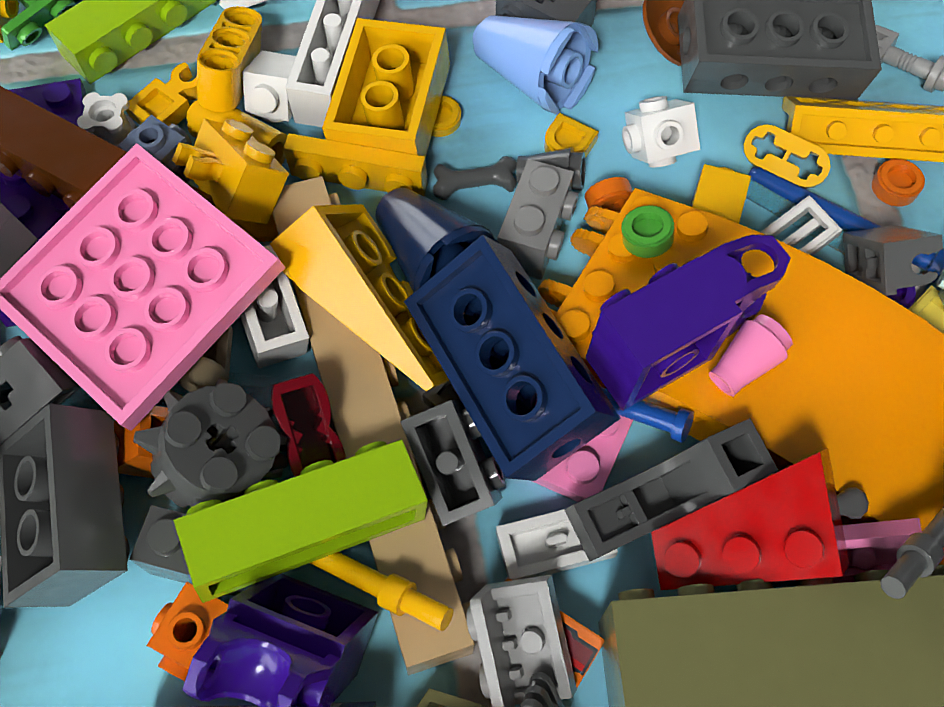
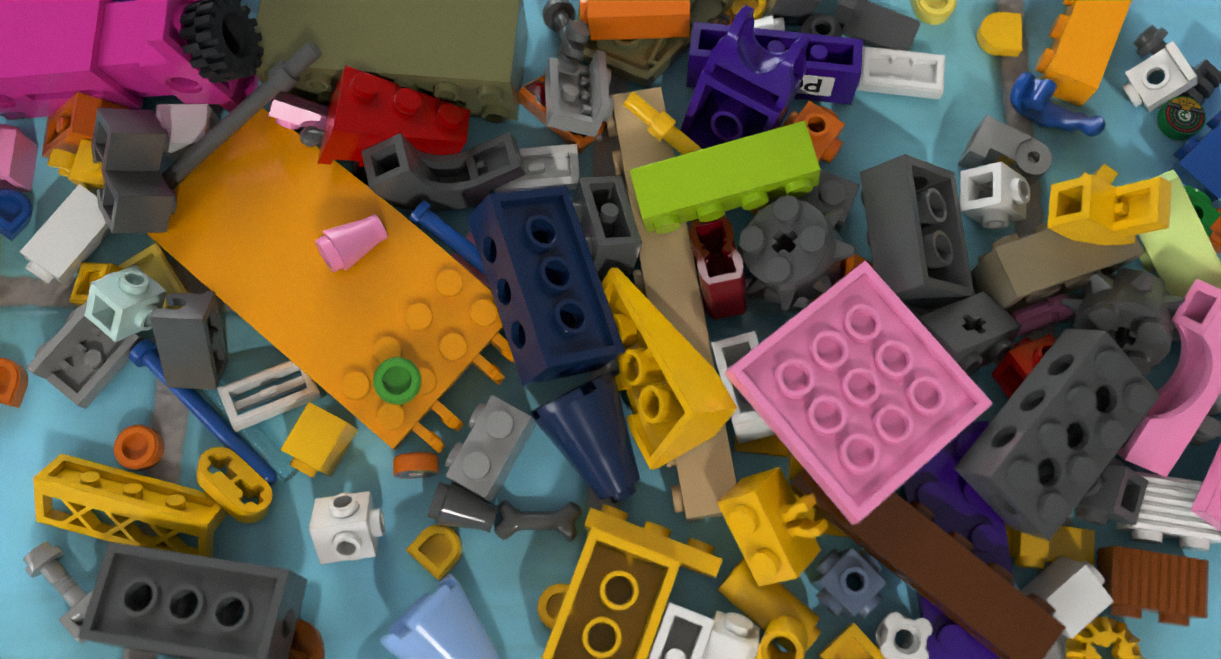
camera: 170 degrees left, 10 degrees up
(679, 318) = (396, 258): dark purple brick -> none

